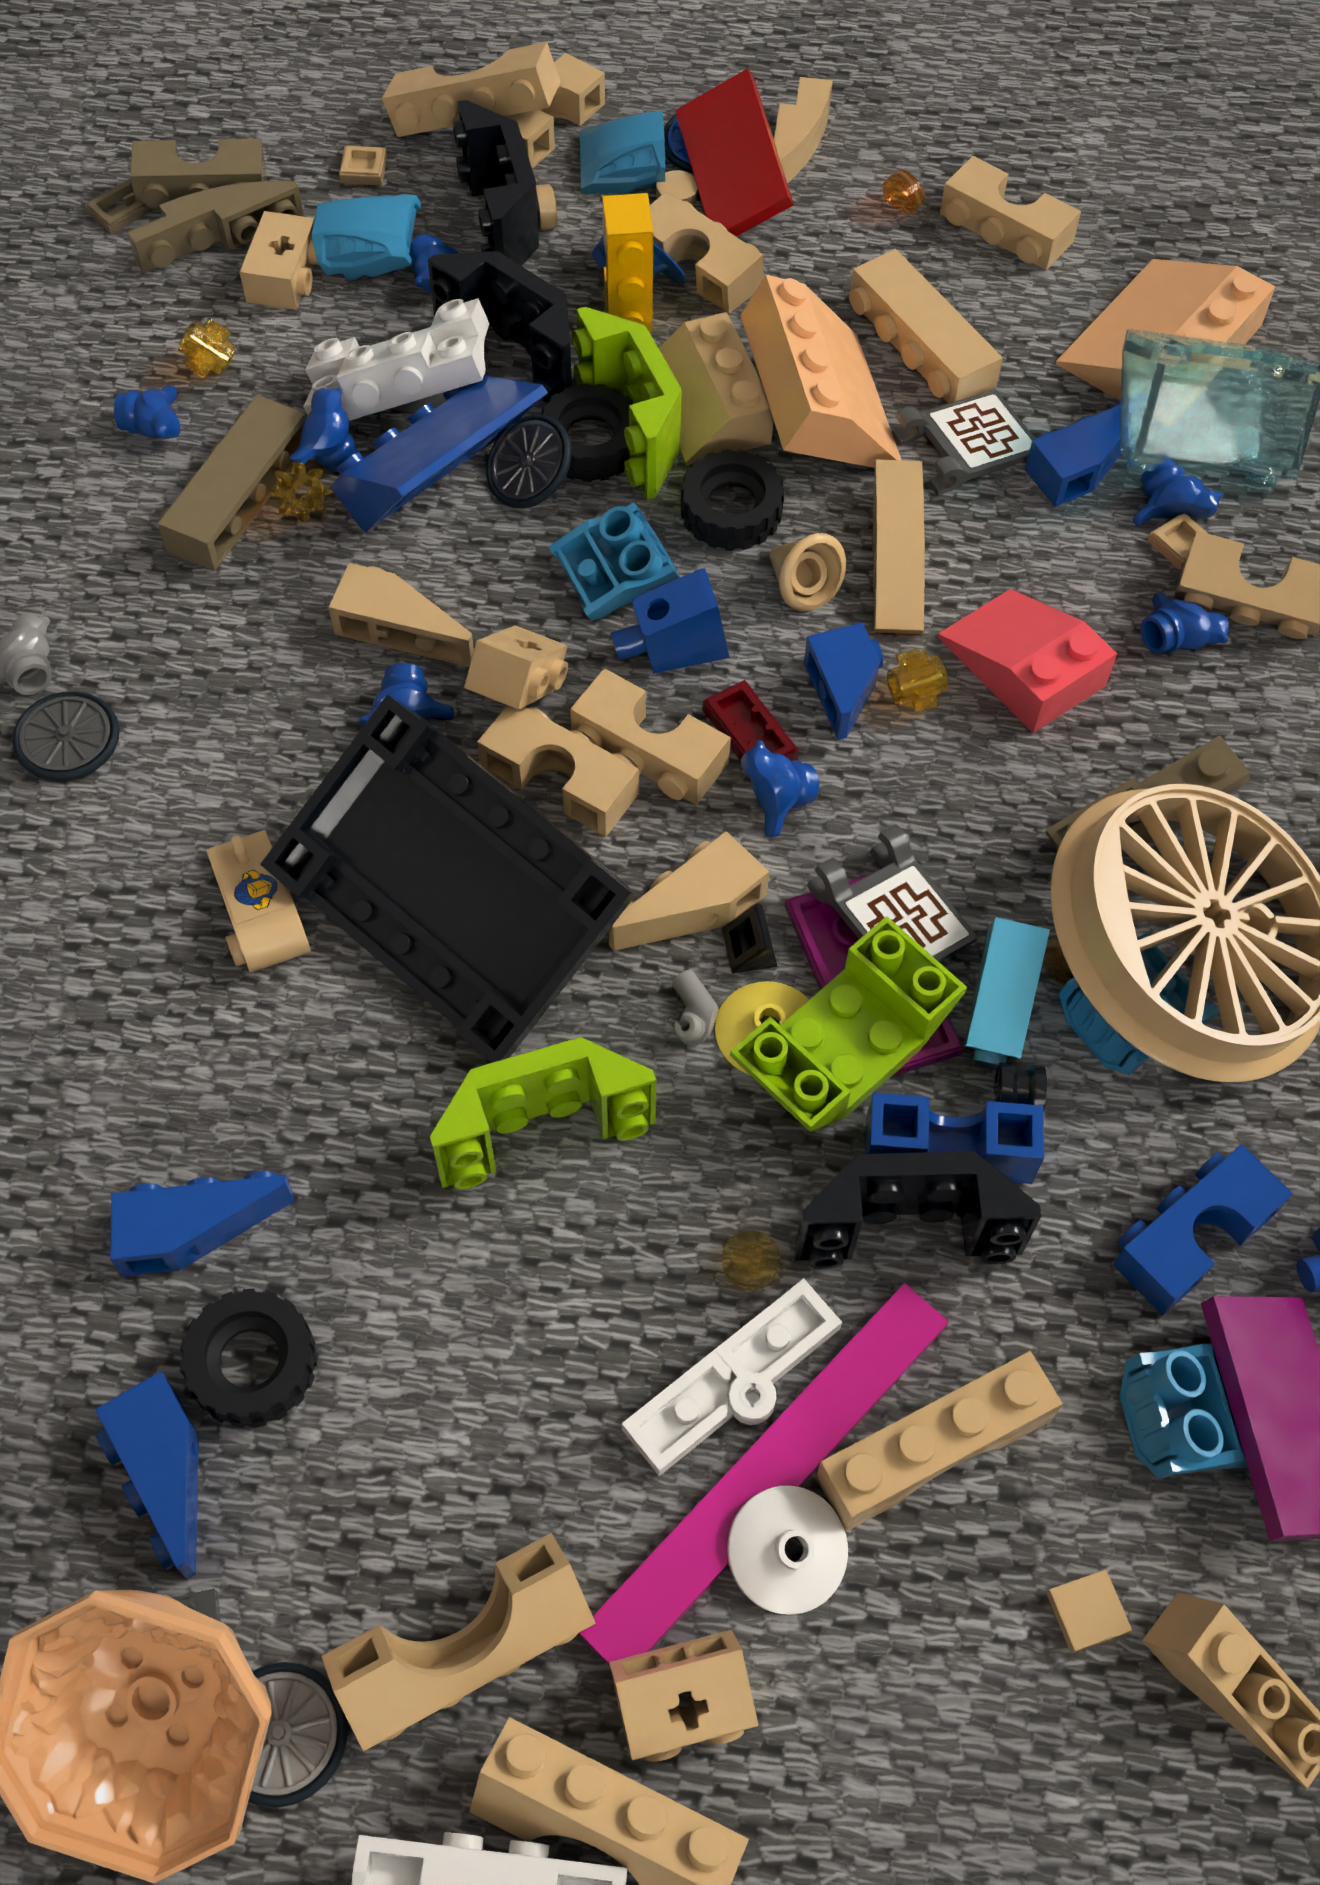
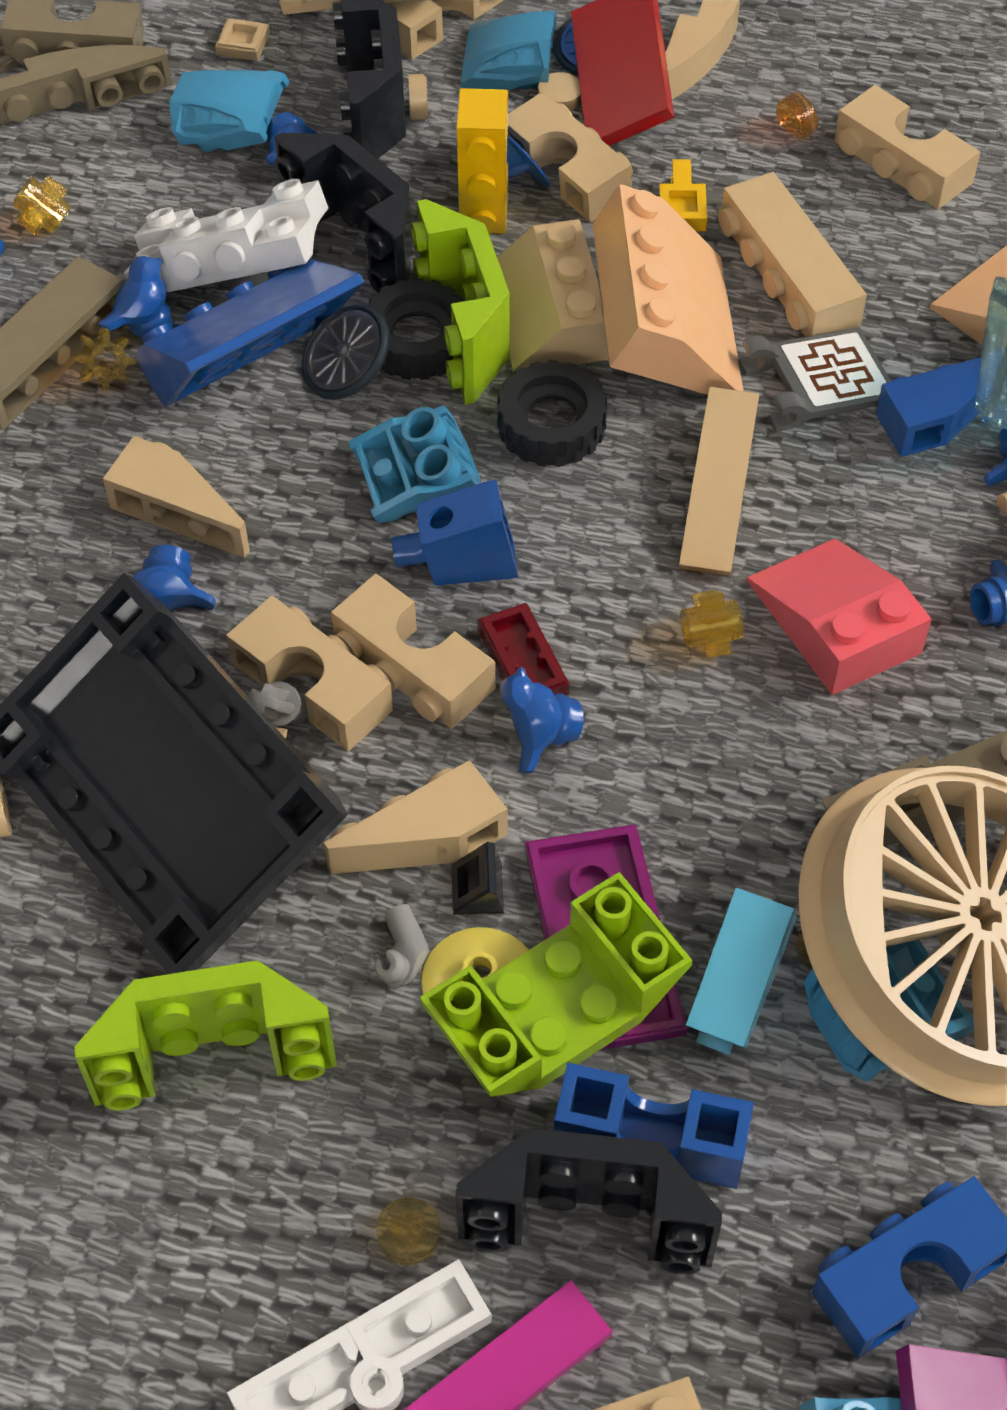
camera: 10 degrees right, 5 degrees down
(279, 261) = (133, 126): tan brick -> none
(516, 667) = (283, 561): tan brick -> none
(543, 797) = (280, 703): none -> light grey axle
(814, 562) = (619, 485): tan hat -> none
(818, 279) = (684, 197): none -> yellow plate
(843, 672) = (635, 607): blue slope -> none
(895, 891) = (648, 855): flag -> none
(1020, 1085) = (742, 1078): black wheel -> none

